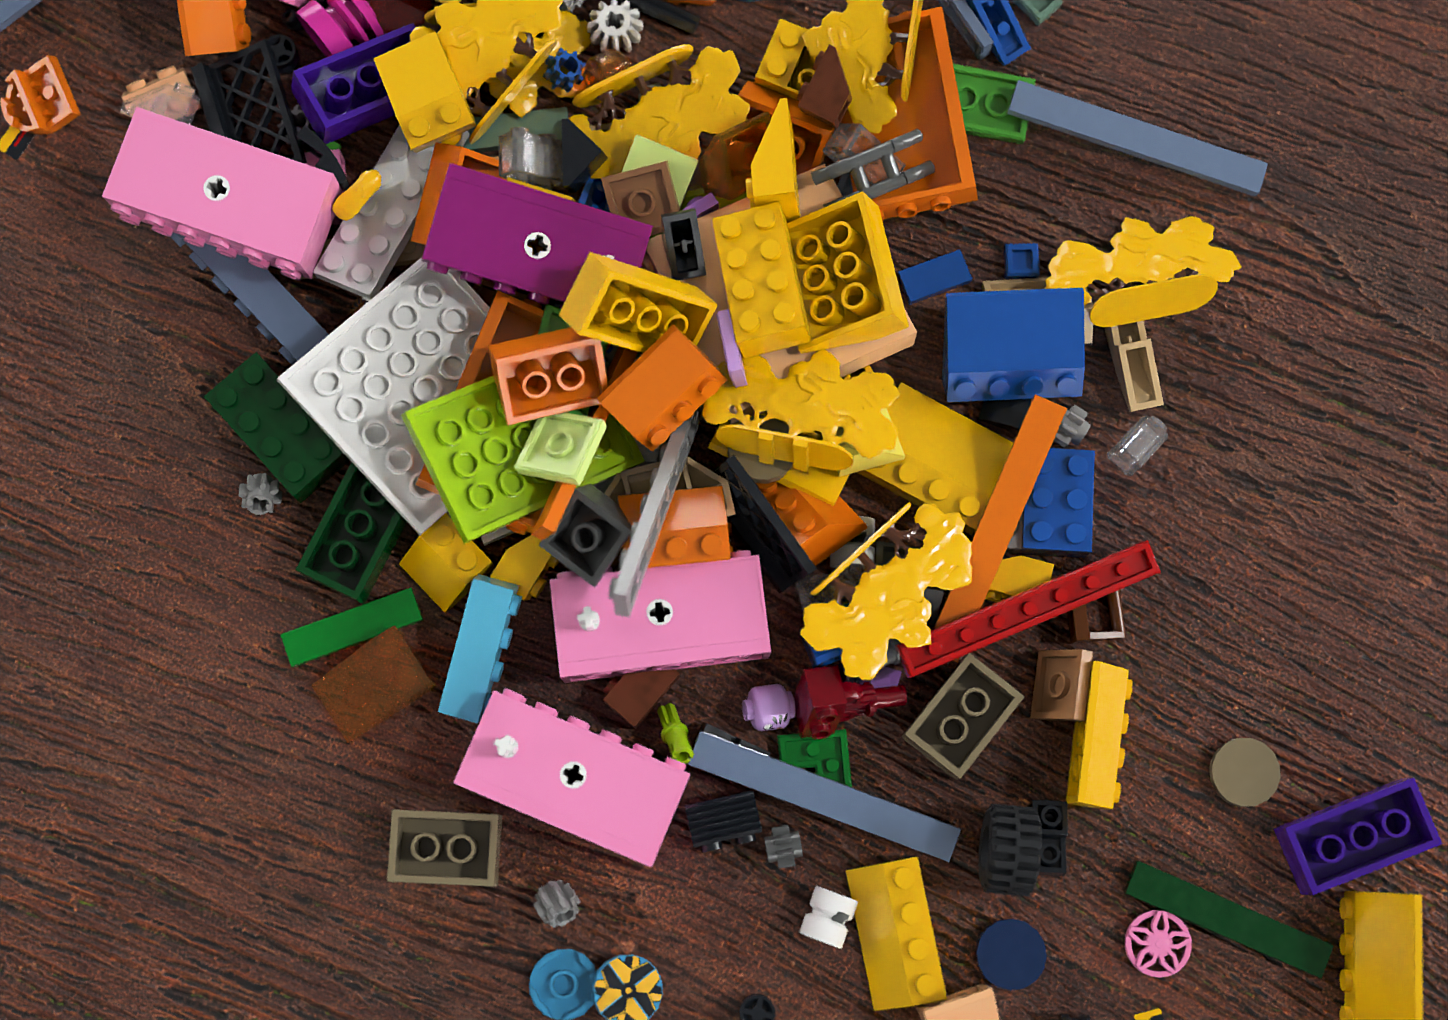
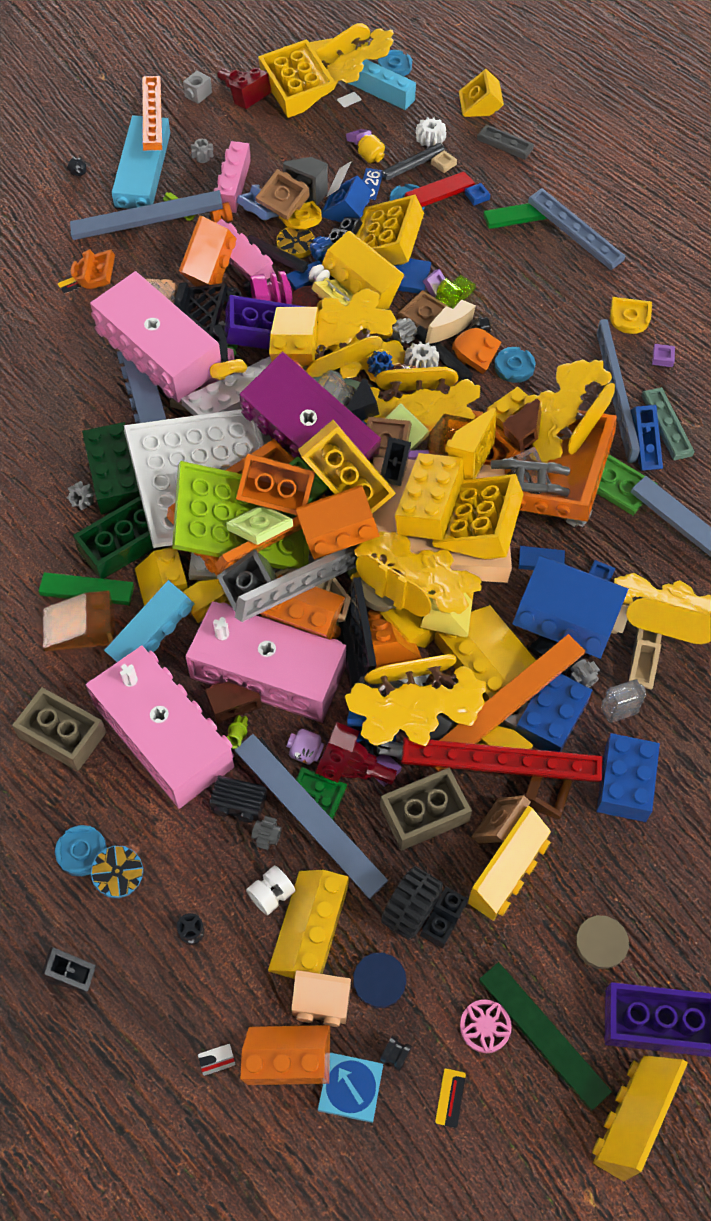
camera: 30 degrees right, 20 degrees down
(556, 903) = (105, 795): light grey gear -> none
(731, 349) = (389, 527): lavender tile -> none
(1187, 544) = (628, 777): none -> blue brick

